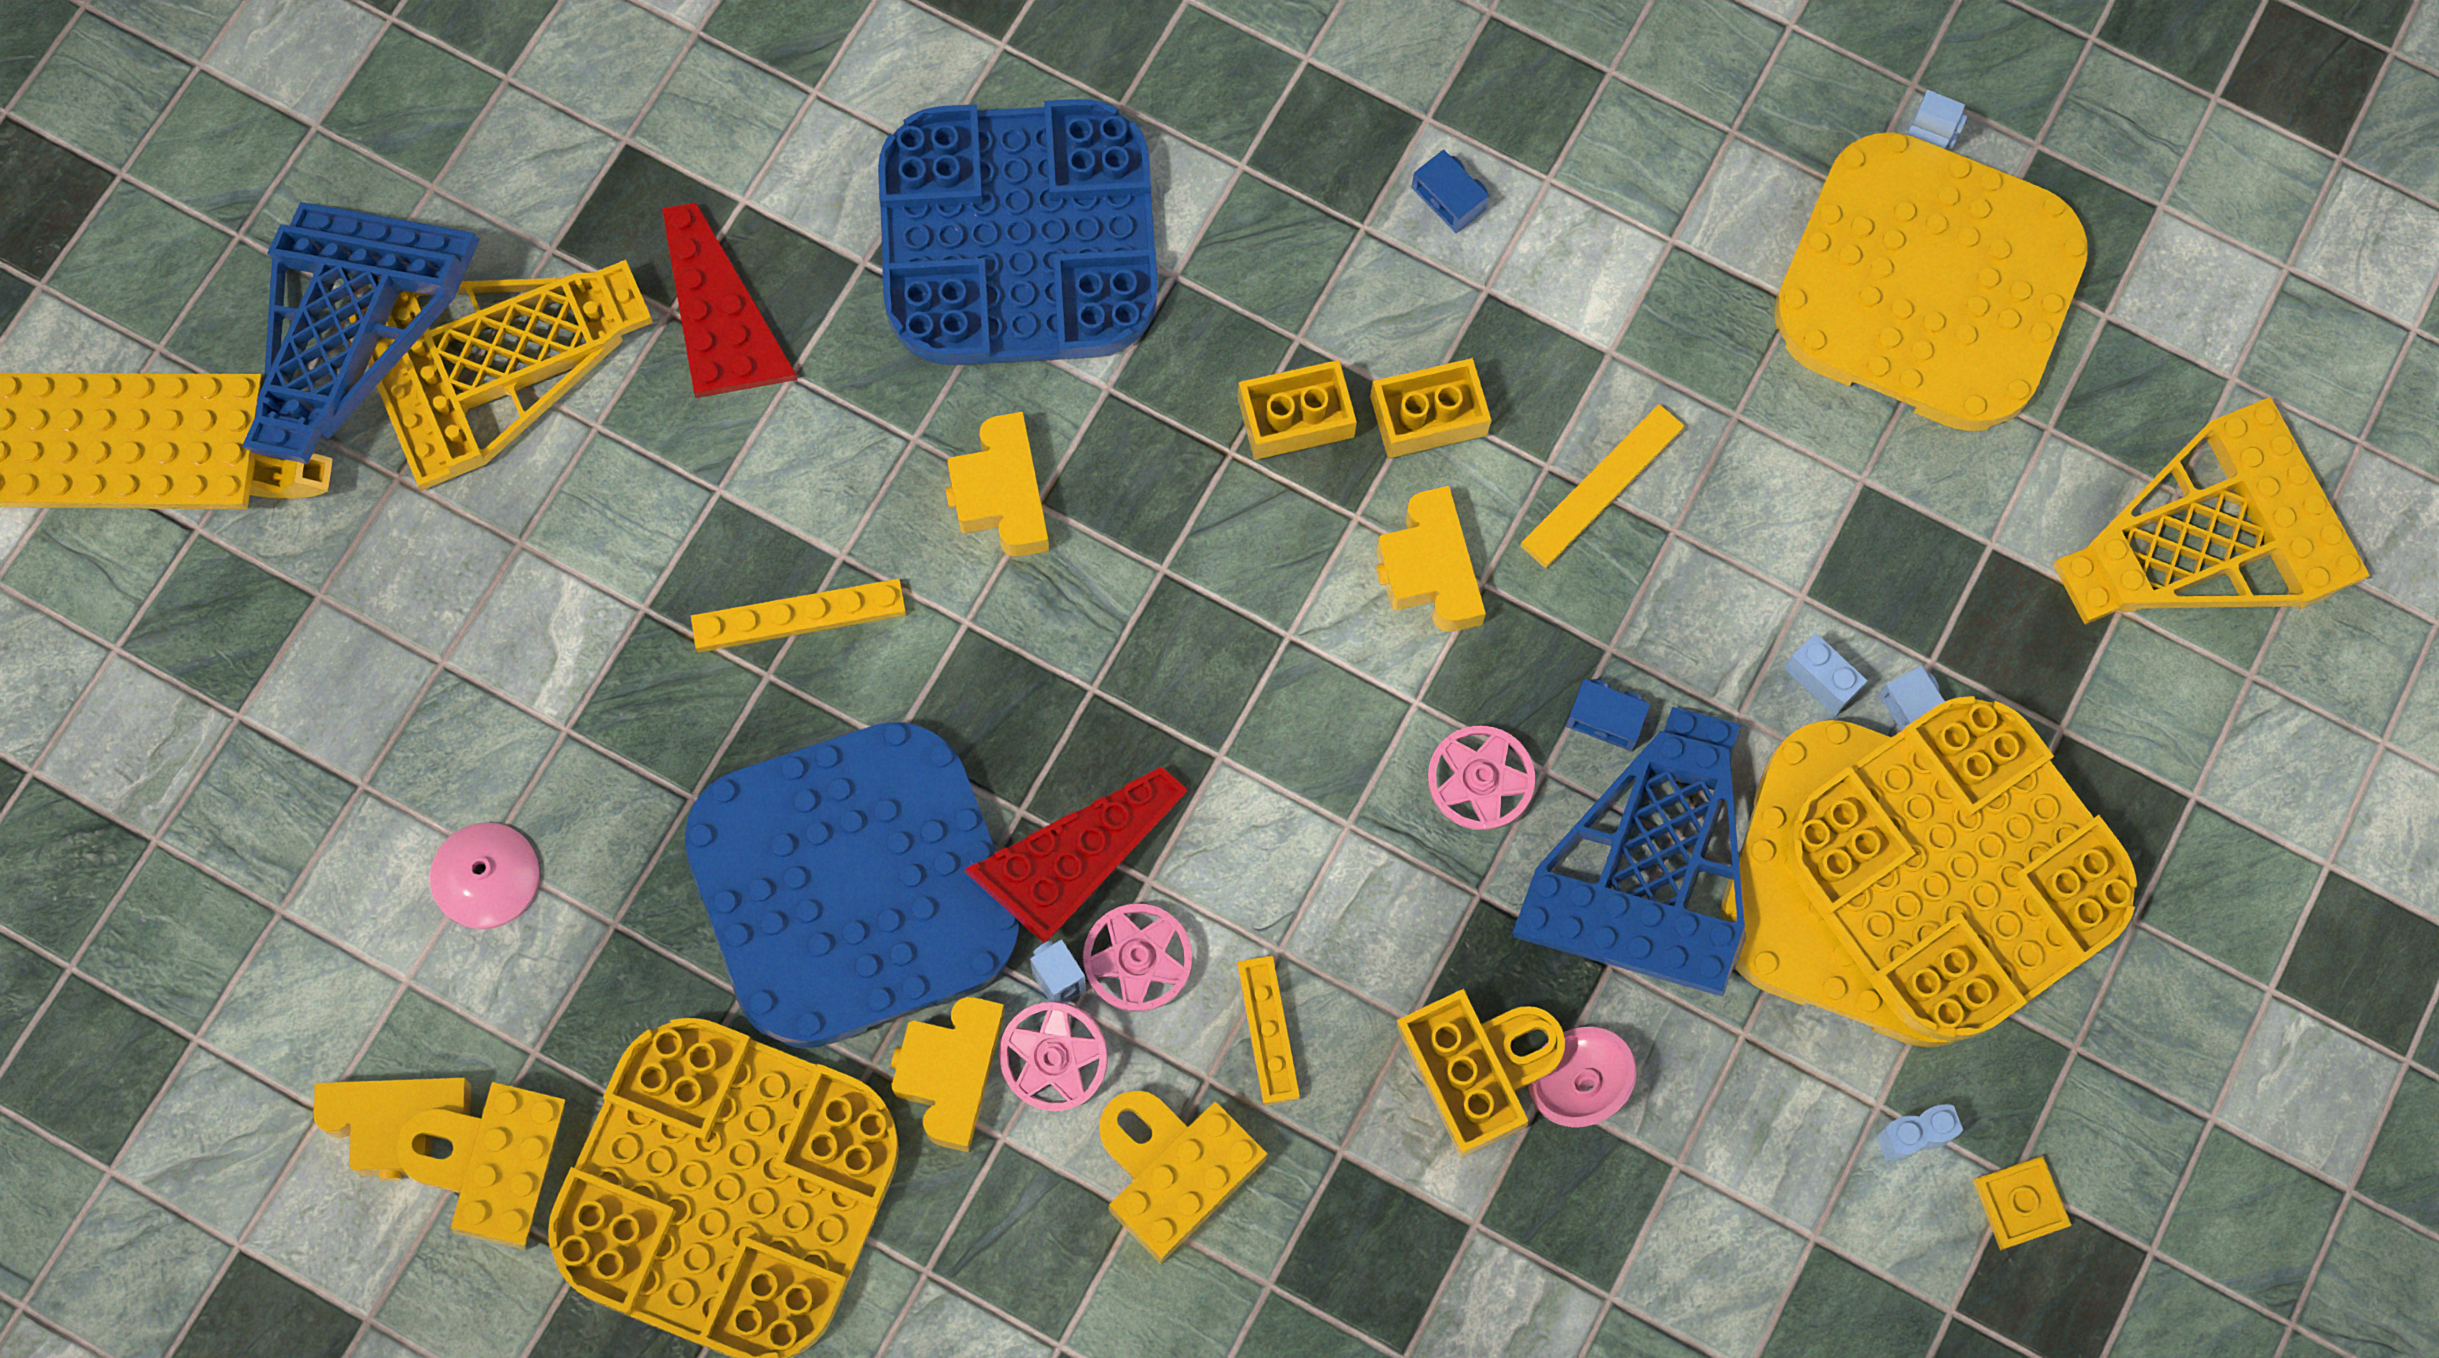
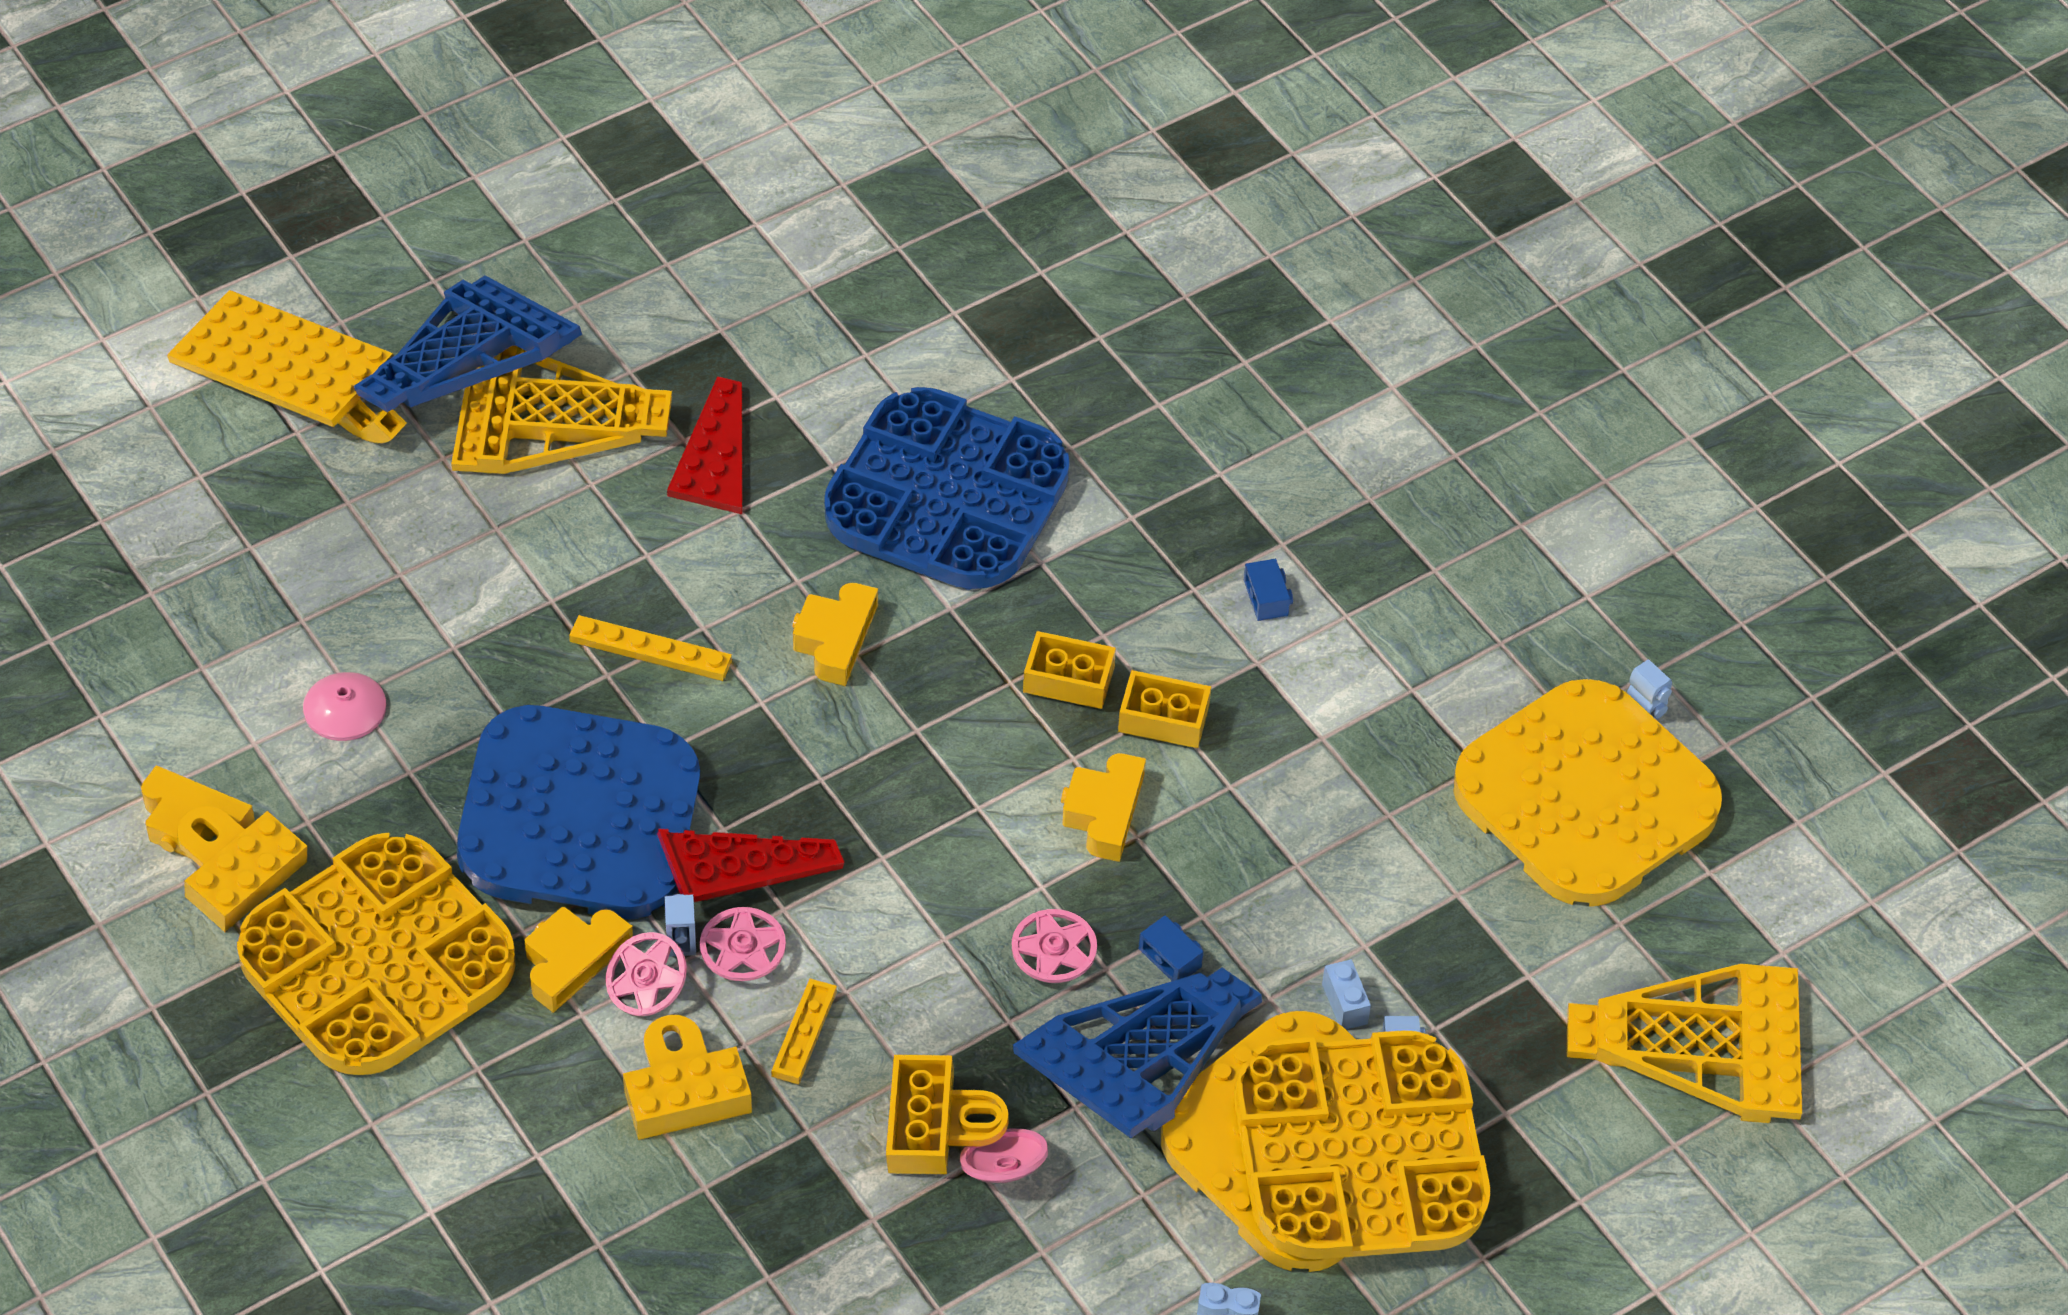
camera: 30 degrees right, 20 degrees down
(1602, 486) = (1261, 813): yellow tile -> none

